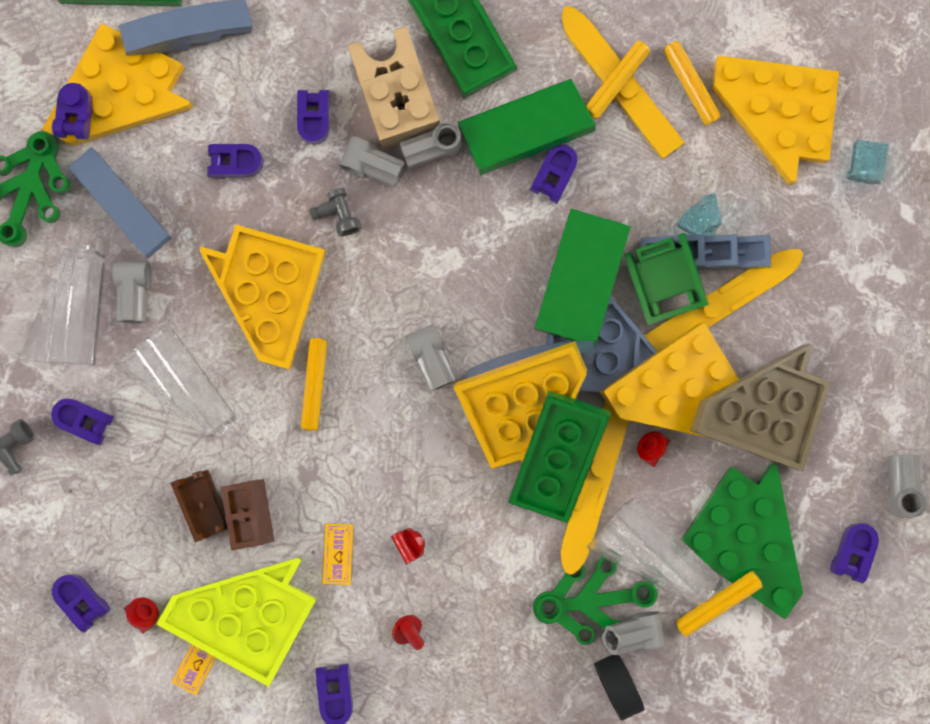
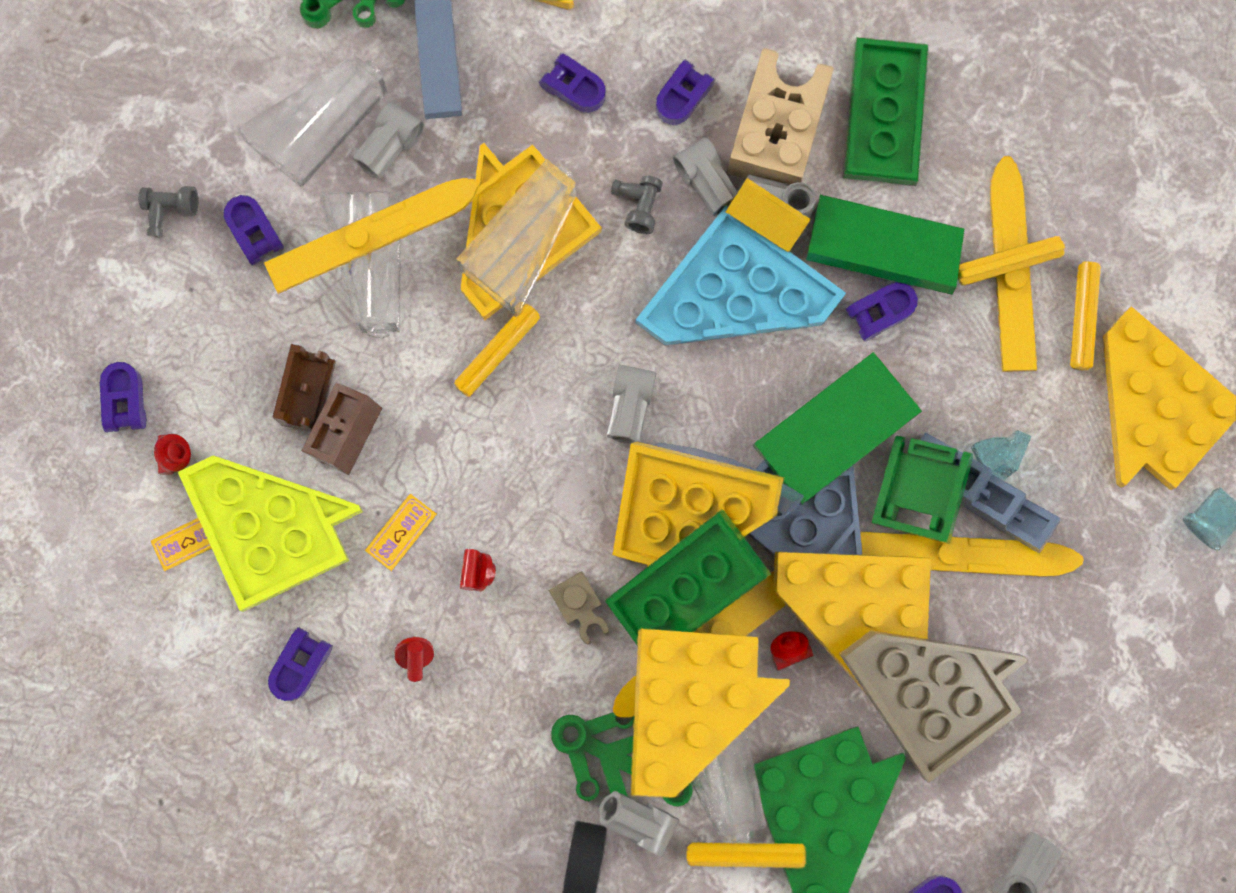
camera: 35 degrees right, 5 degrees down
(169, 367) = (370, 233): none -> yellow piece
(275, 298) = (519, 237): none -> clear slope
(433, 162) = (767, 215): none -> yellow tile
(445, 225) = (737, 287): none -> medium azure plate
(490, 516) = (576, 602): none -> dark tan plate
(618, 534) = (691, 704): none -> yellow wing

